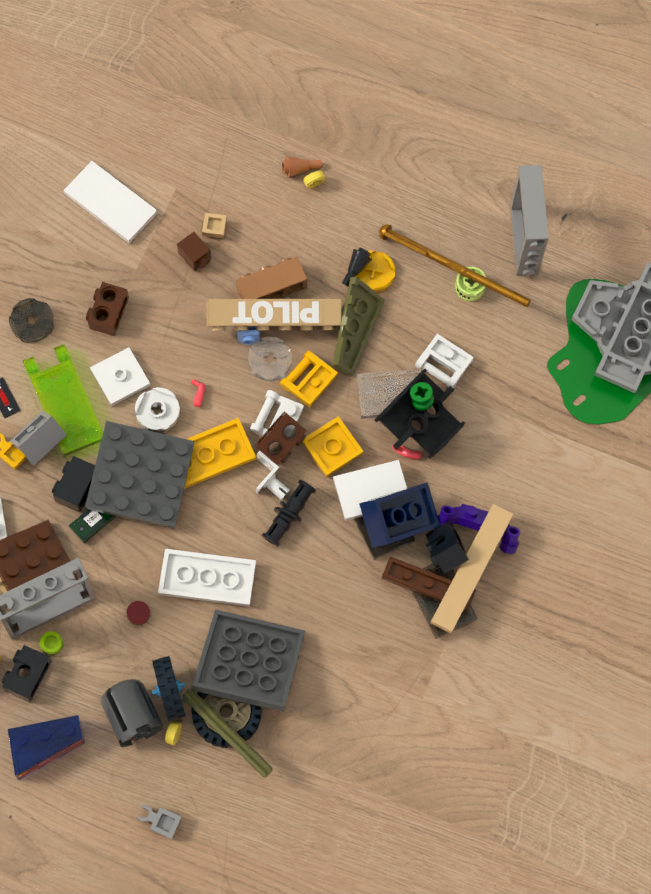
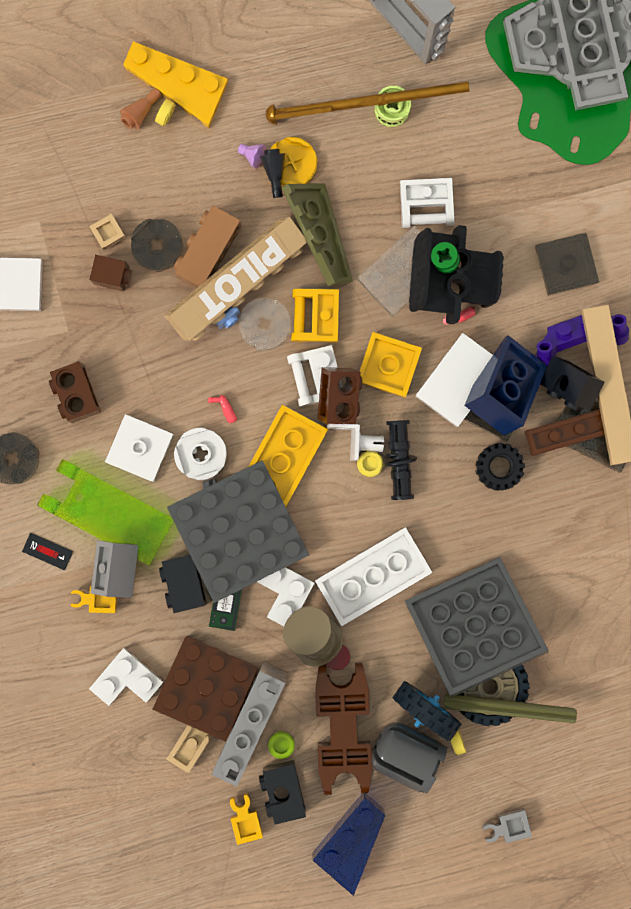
camera: 35 degrees left, 15 degrees up
(112, 648) = (344, 750): none -> reddish brown piece
(133, 581) = (313, 636): none -> dark tan hat
(142, 548) = (292, 593): none -> white plate
(248, 248) = (158, 259): none -> clear smoke plate
(266, 502) = (370, 463): none -> light yellow tile
(341, 169) = (183, 83): none -> yellow wing
(351, 244) = (252, 154): none -> lavender rock
(354, 557) = (511, 455): none -> black tyre
(510, 473) = (567, 264): none -> clear smoke plate

